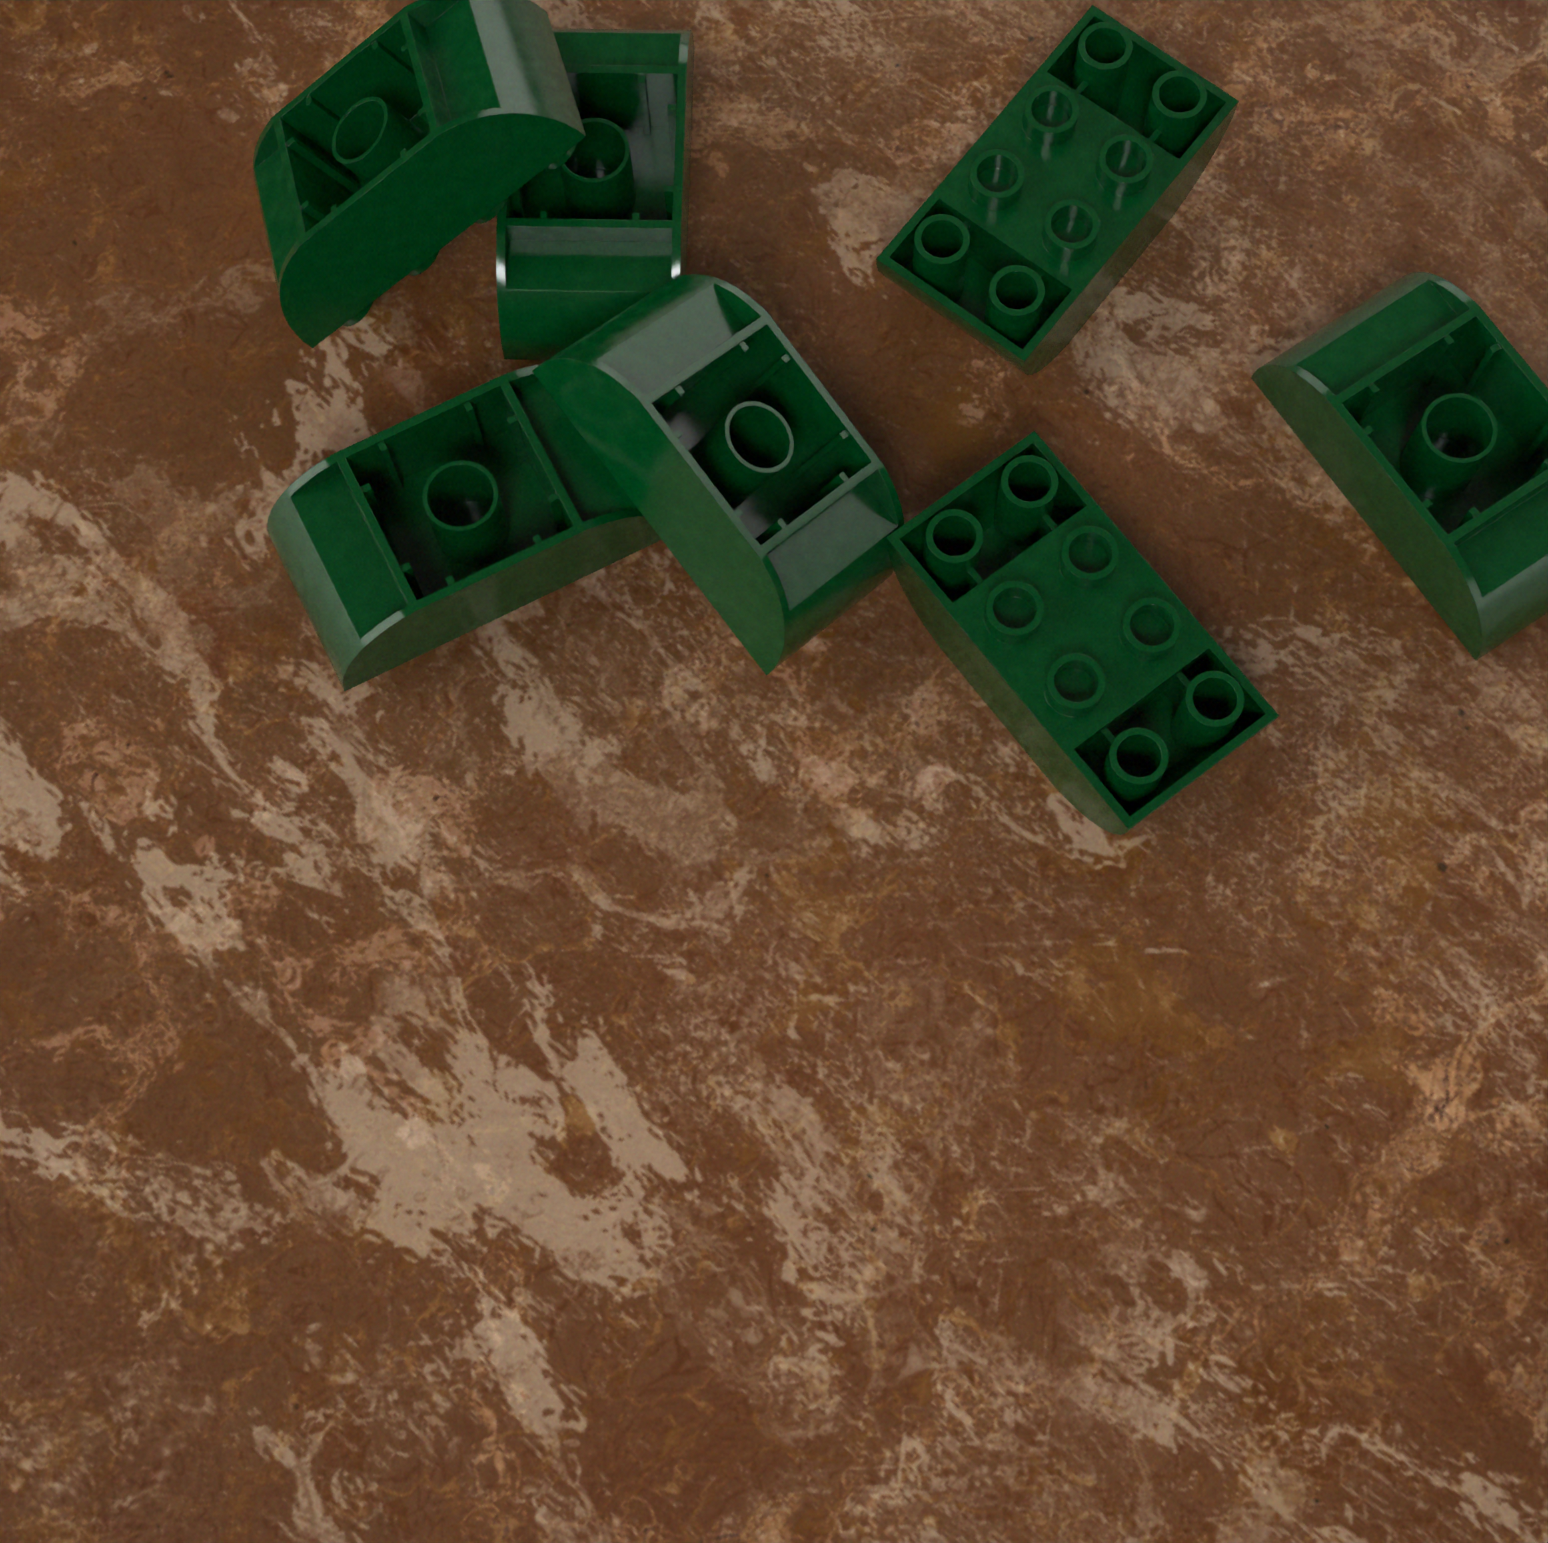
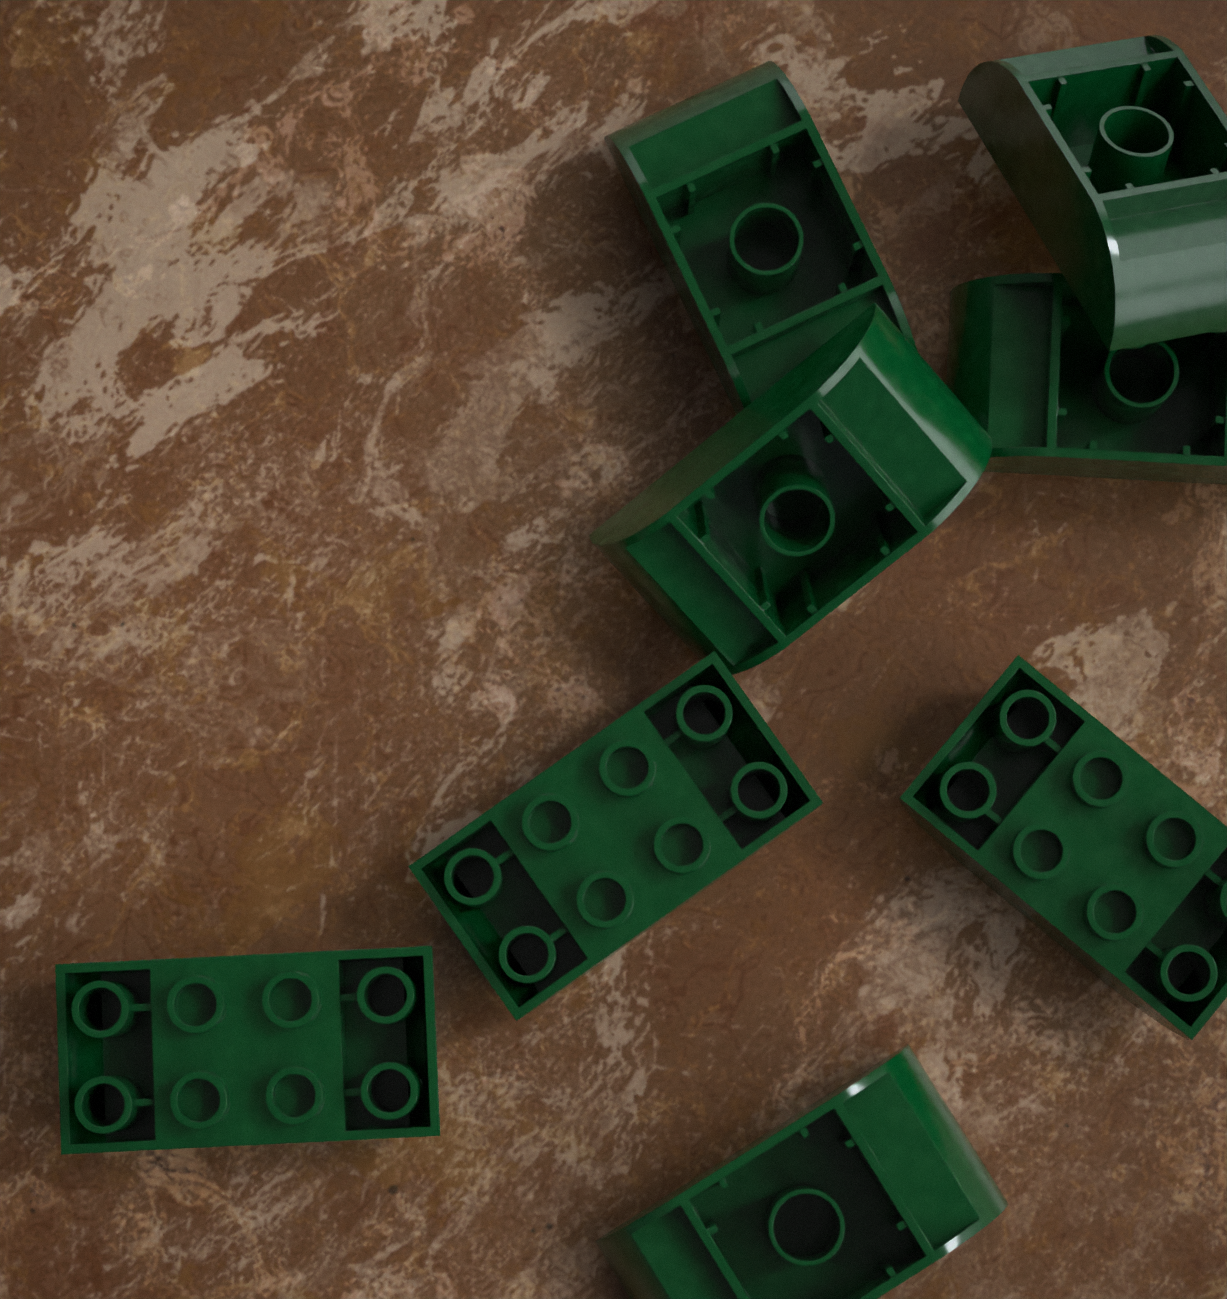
camera: 90 degrees right, 10 degrees up
(1327, 994) = (247, 1050): none -> dark green brick

